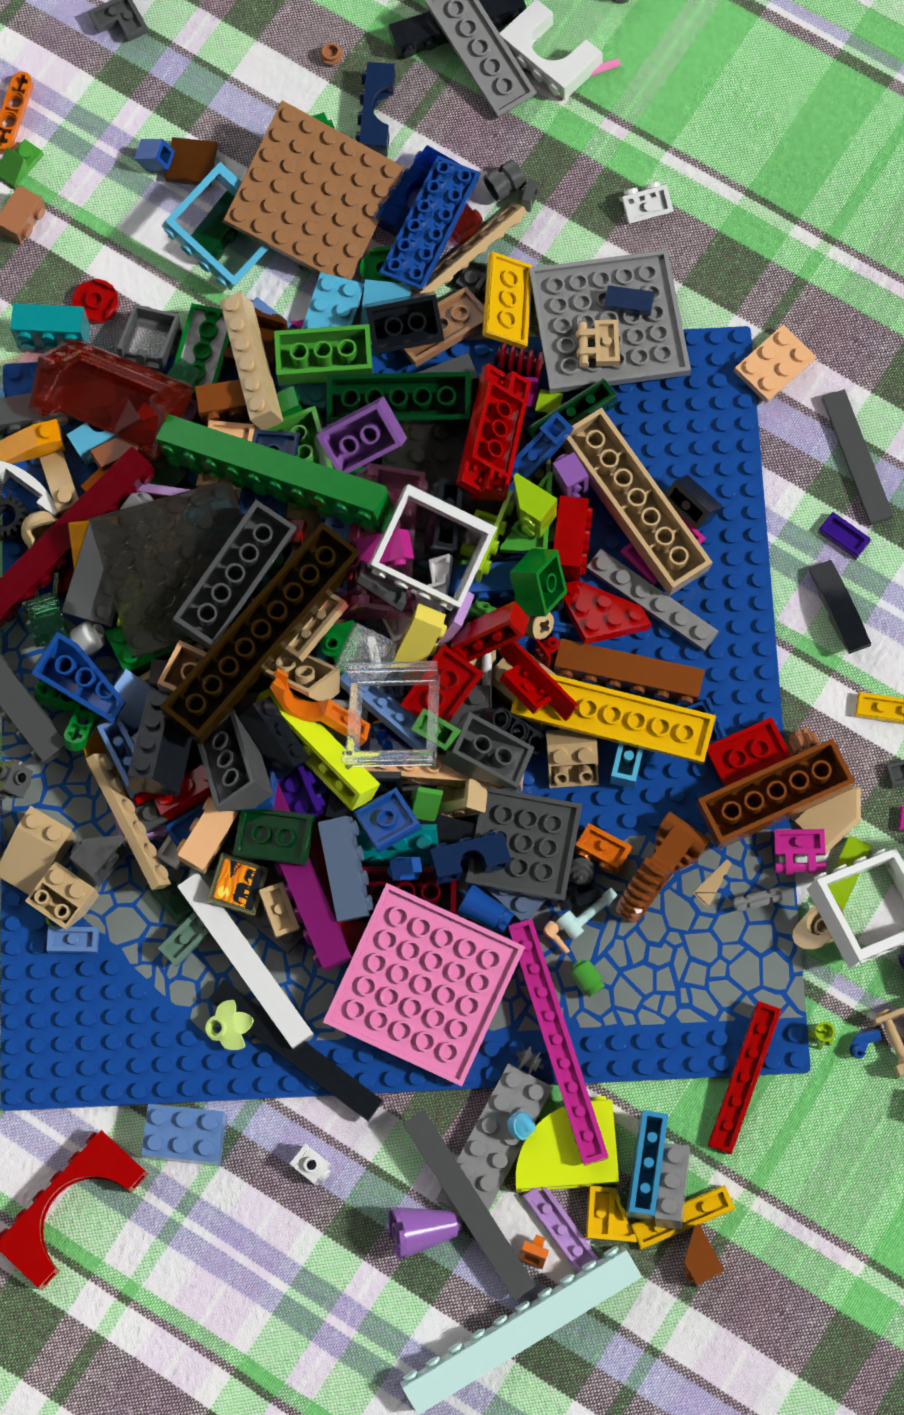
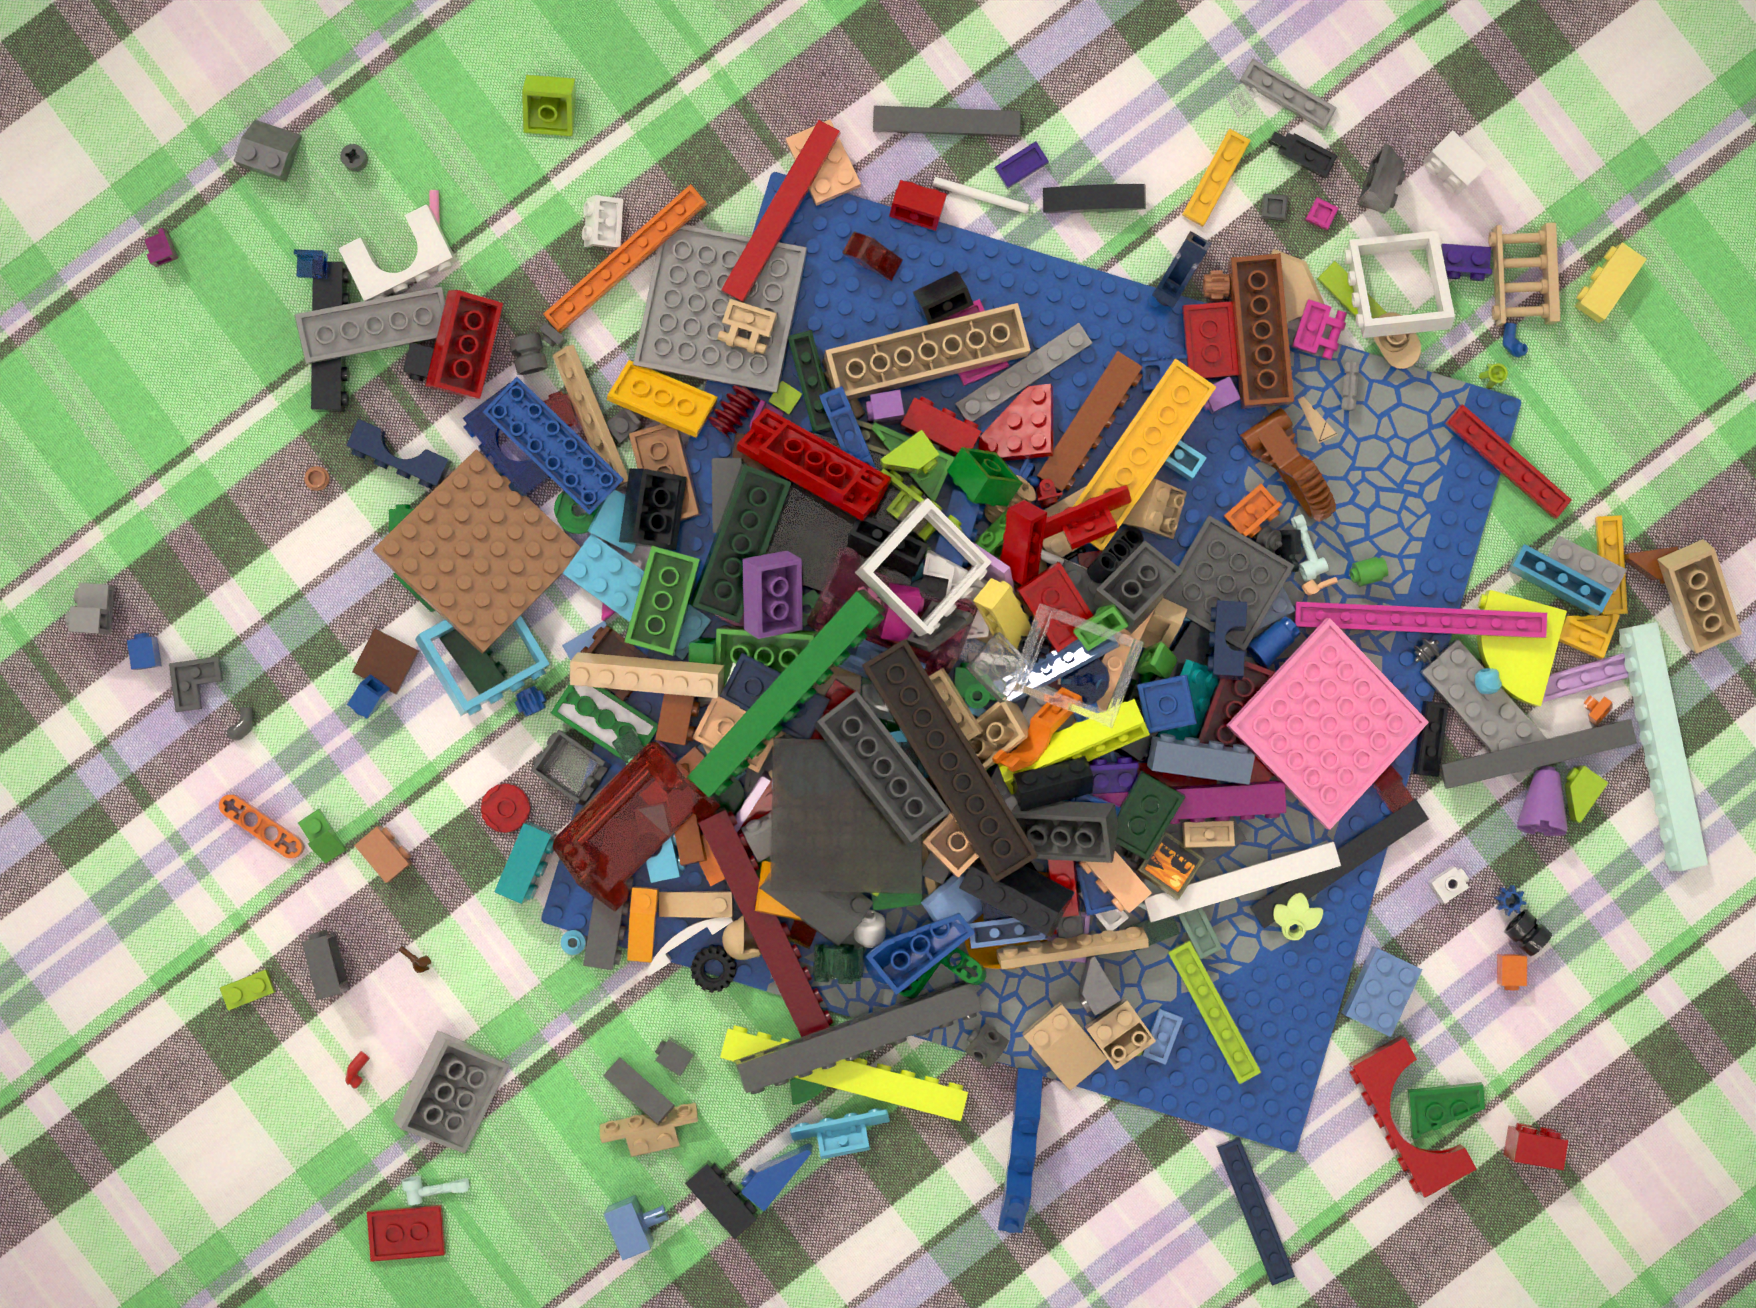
camera: 80 degrees left, 15 degrees up
(78, 1339) = (1536, 1147): none -> red brick
(92, 1236) = (1442, 1104): none -> green wing
(93, 69) = (243, 727): none -> dark grey arm
(111, 981) = (1214, 1012): none -> lime plate
(197, 286) = (530, 701): none -> blue gear
(246, 1257) = (1511, 971): none -> orange brick
(289, 1259) = (1528, 933): none -> black wheel
(320, 1224) = (1512, 906): none -> blue gear
(385, 1074) = (1392, 790): none -> clear red slope
(405, 868) = (1219, 703): blue piece -> none
(448, 1097) = (1431, 739): none -> black tile
(448, 1265) = (1582, 791): none -> lime slope
(463, 98) = (418, 362): none -> black brick
(492, 123) = (464, 344): none -> red brick
(621, 230) = (625, 259): none -> orange tile
(629, 300) = (709, 279): dark blue tile -> none
(682, 1306) = (1699, 596): none -> tan brick
(700, 779) = (1222, 396): none -> medium lavender brick
(706, 431) = (872, 255): none -> clear red slope
(715, 337) = (781, 211): none -> red tile
(731, 123) = (548, 105): none -> lime slope
(769, 454) = (917, 205): none -> red brick
(801, 706) = (1181, 269): none -> dark blue arch
(802, 509) = (980, 195): none -> white bar

